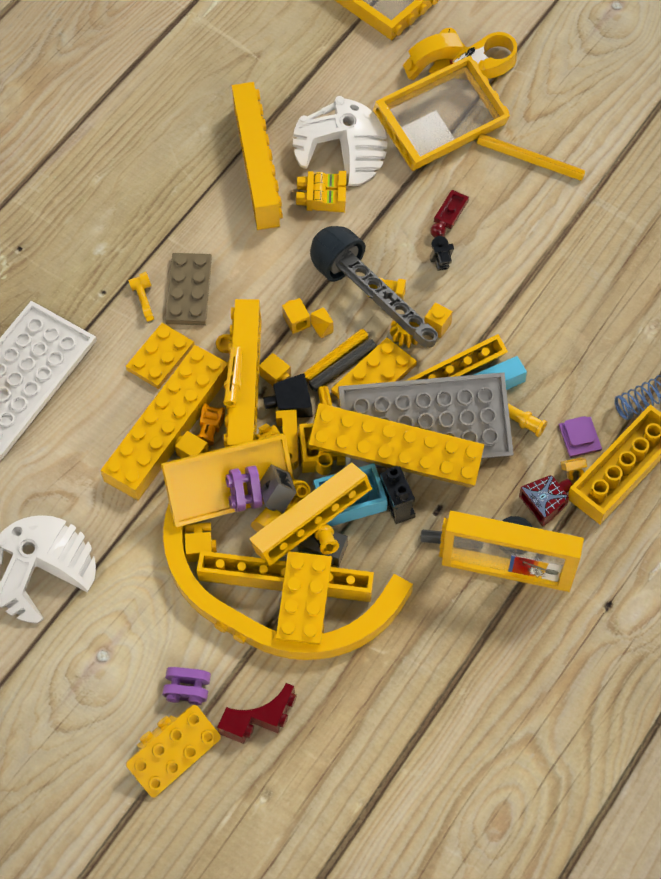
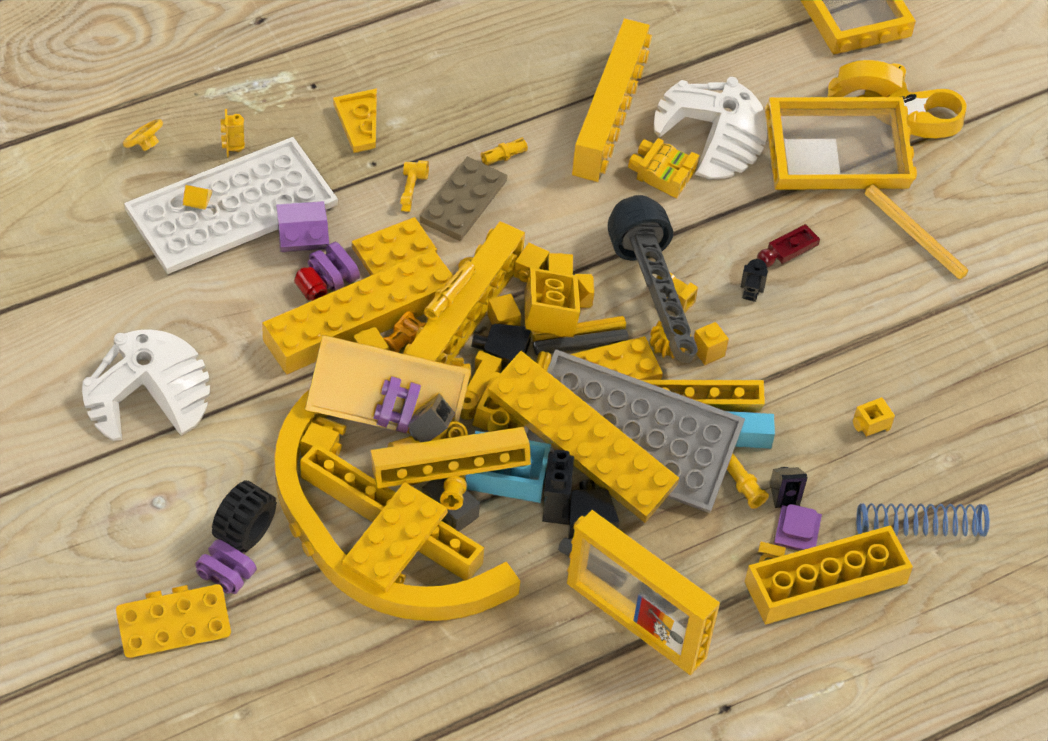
camera: 20 degrees right, 10 degrees down
(71, 260) = (358, 118): none -> yellow wing
(82, 372) = (302, 226): none -> medium lavender slope
(115, 417) = (310, 283): none -> red brick
(119, 394) = (334, 266): none -> medium lavender brick
(180, 639) = (244, 516): none -> black tyre
(197, 235) = (504, 151): none -> yellow pin
(271, 319) = (532, 257): none -> yellow brick
(271, 716) = (295, 638): dark red arch -> none
(308, 345) = (551, 302): none -> yellow brick
(431, 500) = (590, 499): none -> black torso
(545, 497) = (720, 568): dark red torso -> none
(557, 407) = (787, 486): none -> black slope
(585, 322) = (873, 417): none -> yellow brick

